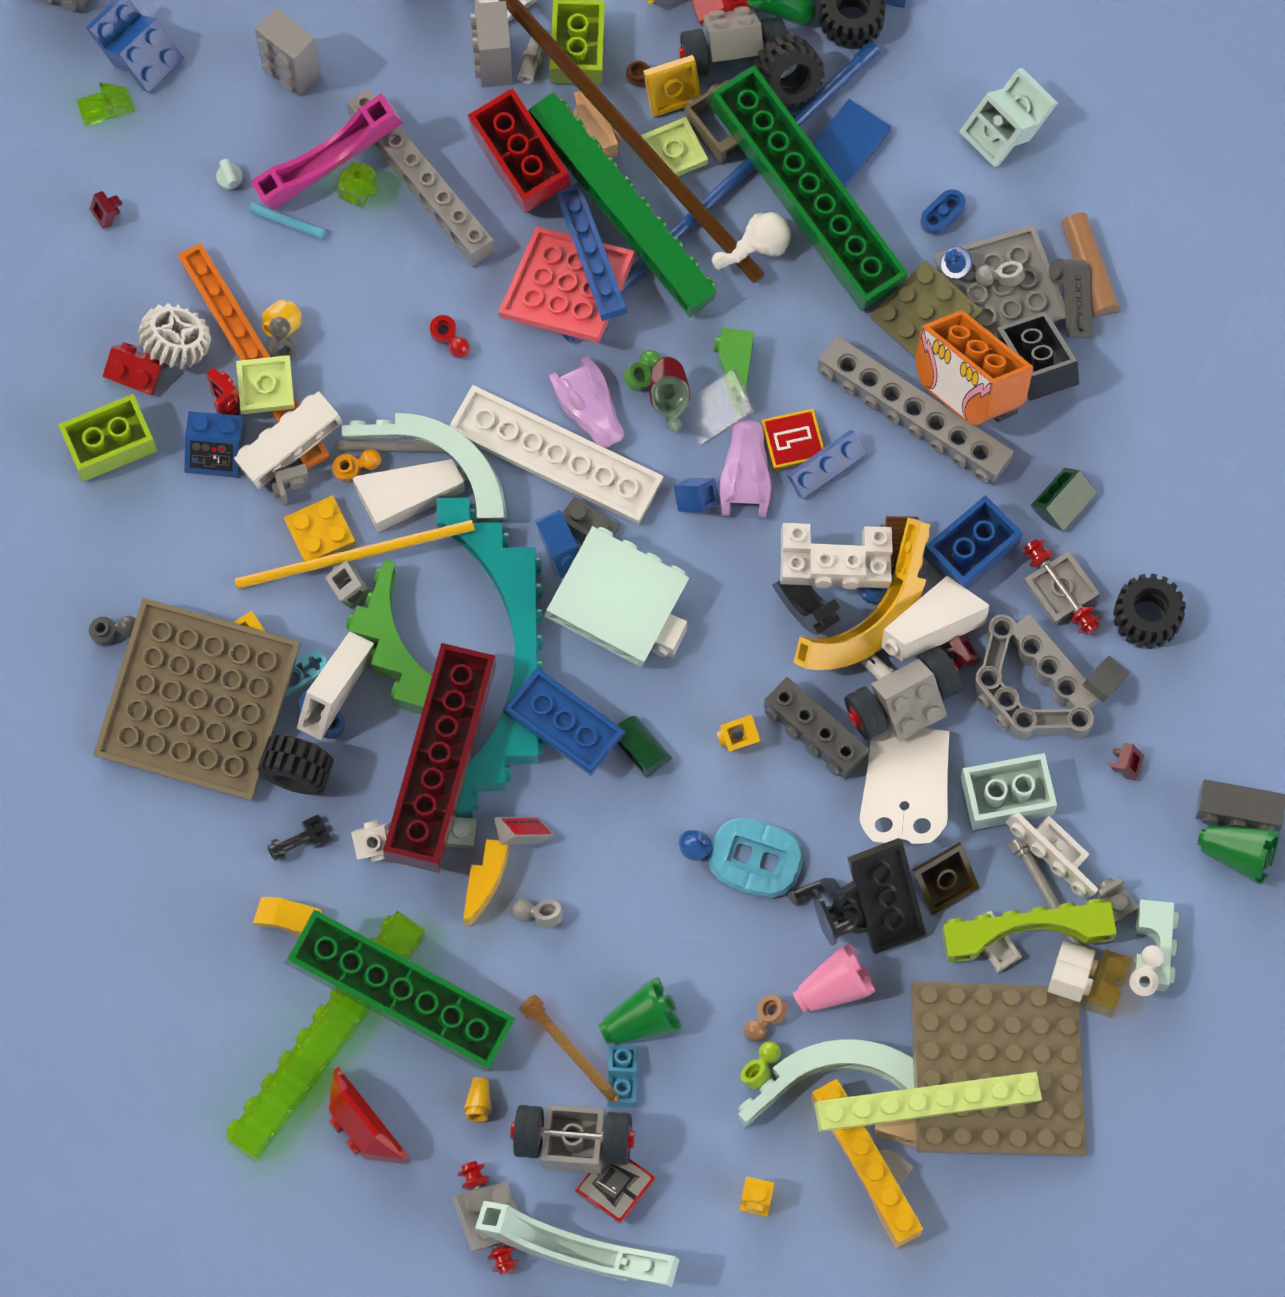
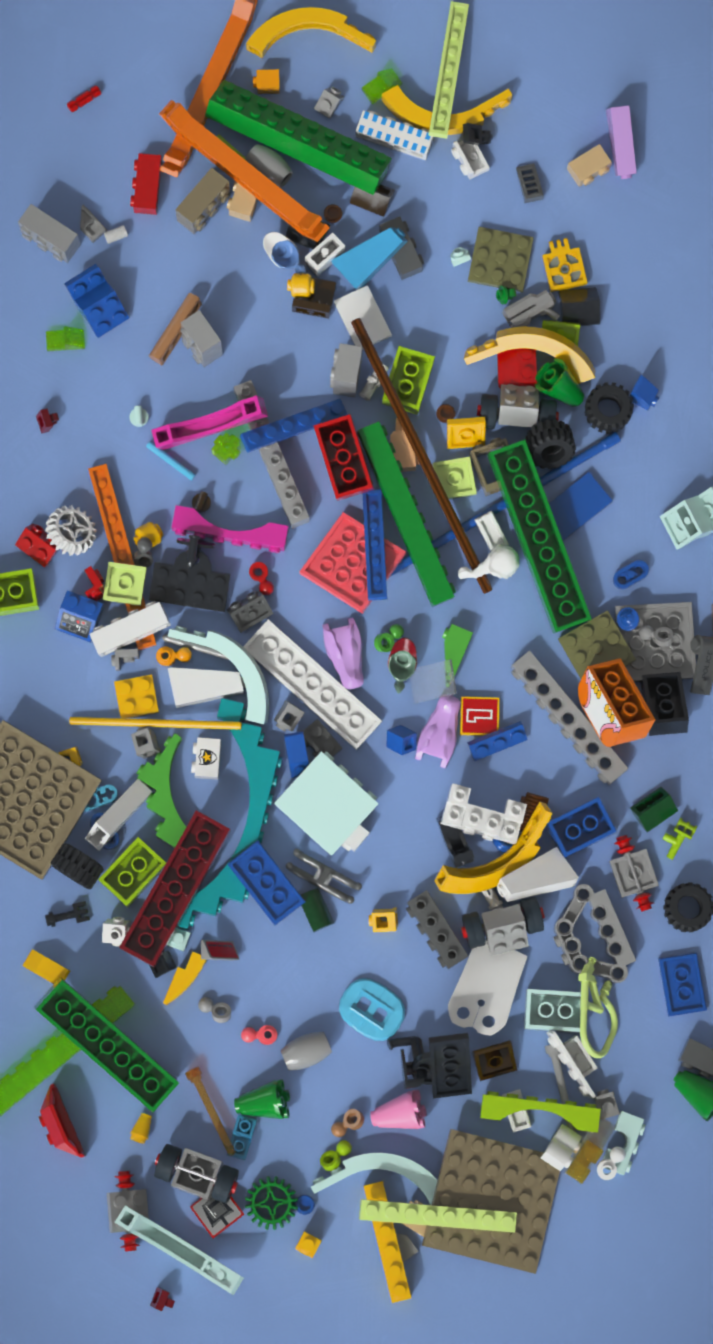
camera: 10 degrees right, 10 degrees up
(246, 62) = (172, 332): none -> medium nougat brick
(335, 289) = (269, 536): none -> dark pink arch
(342, 261) = (201, 502): none -> dark brown plate
(354, 364) = (190, 582): none -> black plate
(374, 756) = (132, 872): none -> lime brick
(429, 135) = (291, 425): none -> blue plate
(438, 584) = (207, 758): none -> white brick
(445, 381) = (249, 610): none -> dark grey bracket
(450, 874) = (164, 965): none -> black slope
(540, 495) = (295, 716): none -> light grey brick
(595, 933) = (249, 1035): none -> coral plate
(639, 699) = (323, 876): none -> dark grey piece
(677, 1159) = (254, 1205): none -> green gear
(680, 933) = (306, 1051): none -> light grey piece
(695, 844) = (333, 990): blue hat -> none
(736, 1145) = (305, 1204): none -> blue tile
(739, 200) = (491, 530): none -> white tile
(964, 650) = (554, 902): dark red tile -> none
(1065, 766) = (589, 981): none -> yellowish green piece
(1106, 678) = (645, 948): dark grey slope -> none
(1110, 520) = (677, 841): none -> lime arm
(1129, 761) = (643, 1010): tile -> none
(1171, 716) = (682, 984): none -> blue tile

